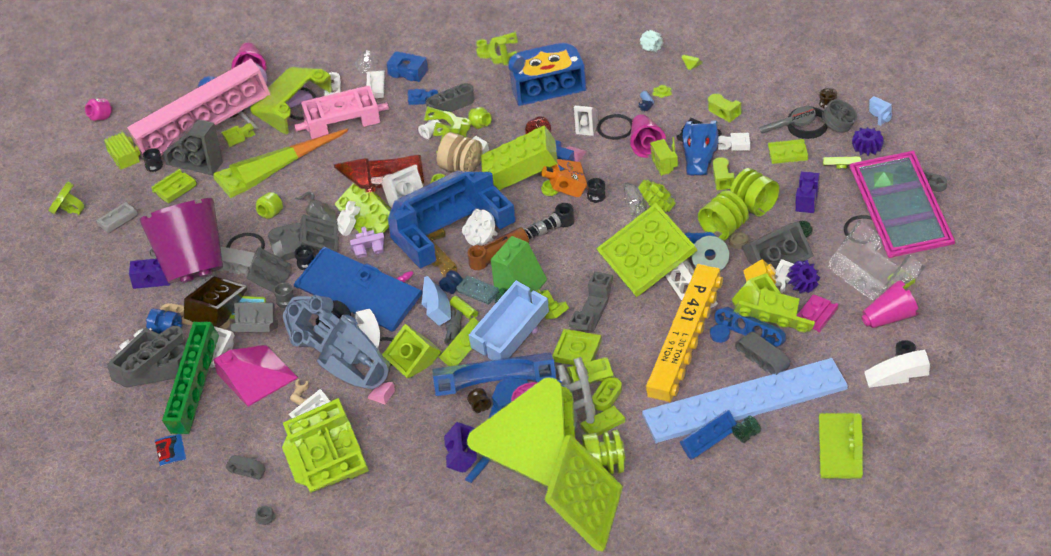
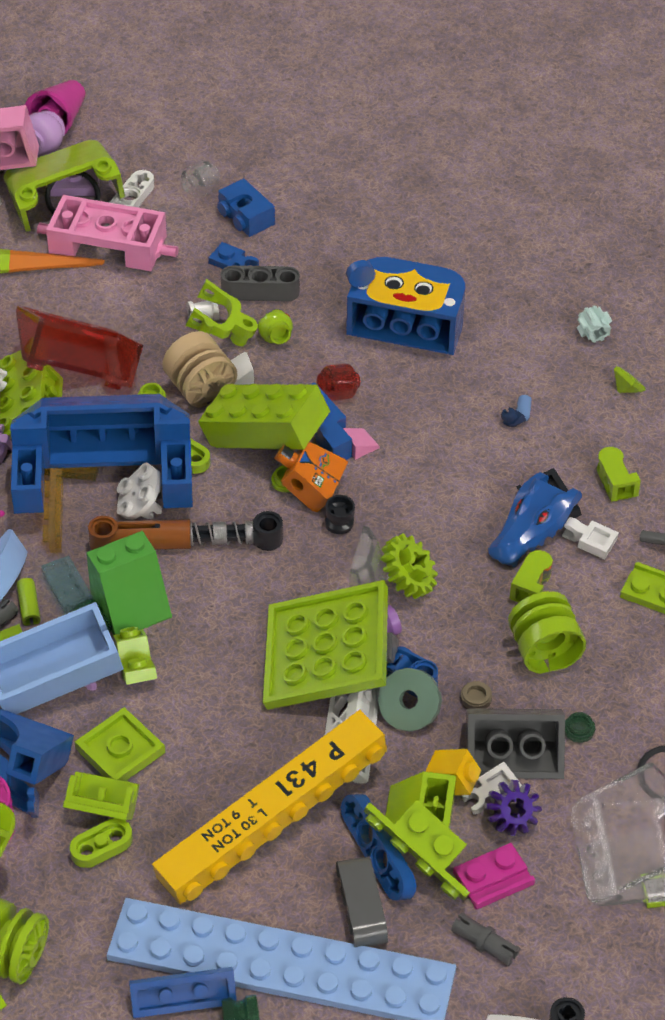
camera: 25 degrees right, 5 degrees up
(376, 80) = (188, 214): white plate -> none
(401, 183) = (90, 375): white slope -> none
(450, 282) = (40, 553): dark blue wheel -> none
(489, 50) = (375, 235): lime piece -> none
(582, 383) = (48, 807): light grey piece -> none
(585, 120) = (408, 400): white slope -> none
(599, 292) = (219, 672): dark grey slope -> none
(603, 421) = (61, 885): lime plate -> none
(612, 116) = (451, 410): black tyre -> none
(643, 133) = (468, 466): dark pink cone -> none
(662, 91) = (555, 407): lime plant -> none
(663, 157) = (468, 510): lime piece -> none
(719, 333) = (332, 832): blue tile -> none
(723, 214) = (474, 646): lime wheel -> none
(807, 192) = (617, 677): dark purple brick -> none
(836, 340) = (485, 939): none -> dark grey pin
(890, 307) = (600, 929): dark pink cone -> none

